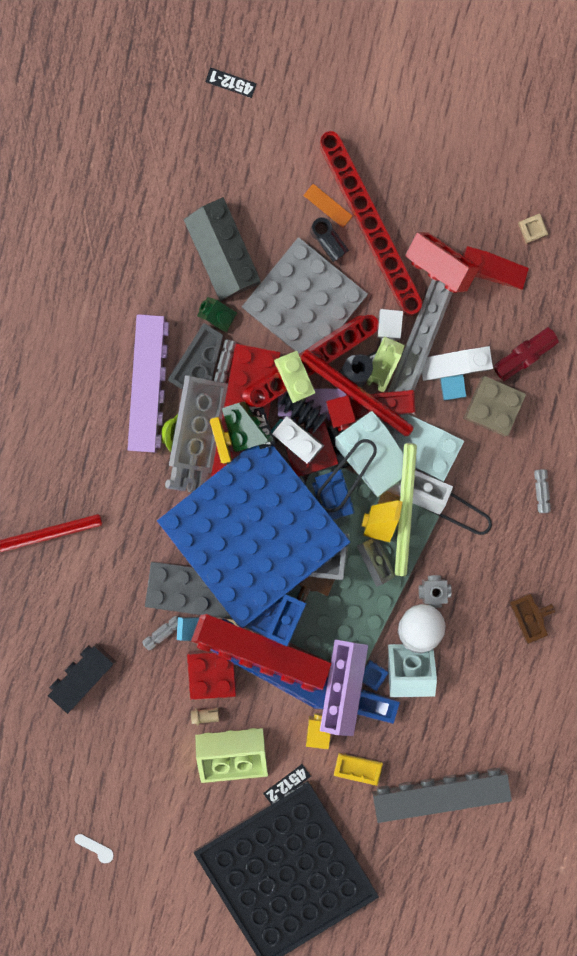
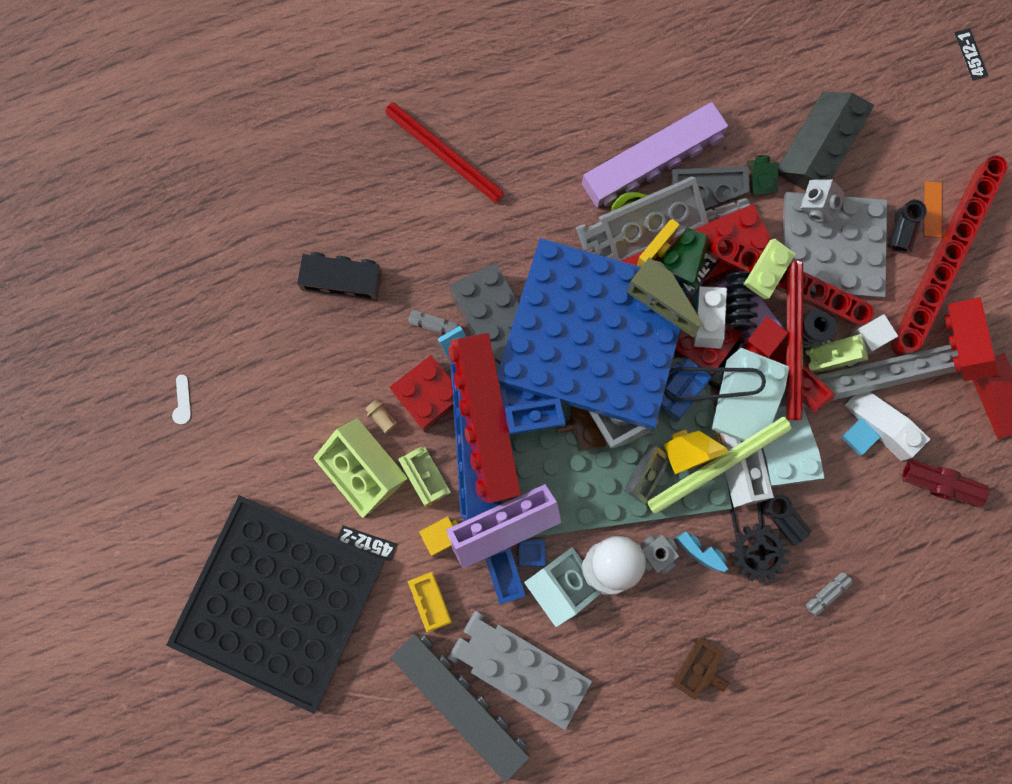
camera: 55 degrees right, 10 degrees down
(258, 468) = (662, 293): none -> olive slope
(268, 292) = (822, 200): none -> light grey brick
(269, 714) = (424, 476): none -> yellowish green hinge
(446, 737) = (521, 670): none -> light grey hinge
(460, 558) = (708, 557): none -> medium azure slope
(473, 515) = (759, 563): none -> black gear
(474, 483) = (787, 519): none -> black piece
(494, 406) = (875, 486): dark tan brick -> none

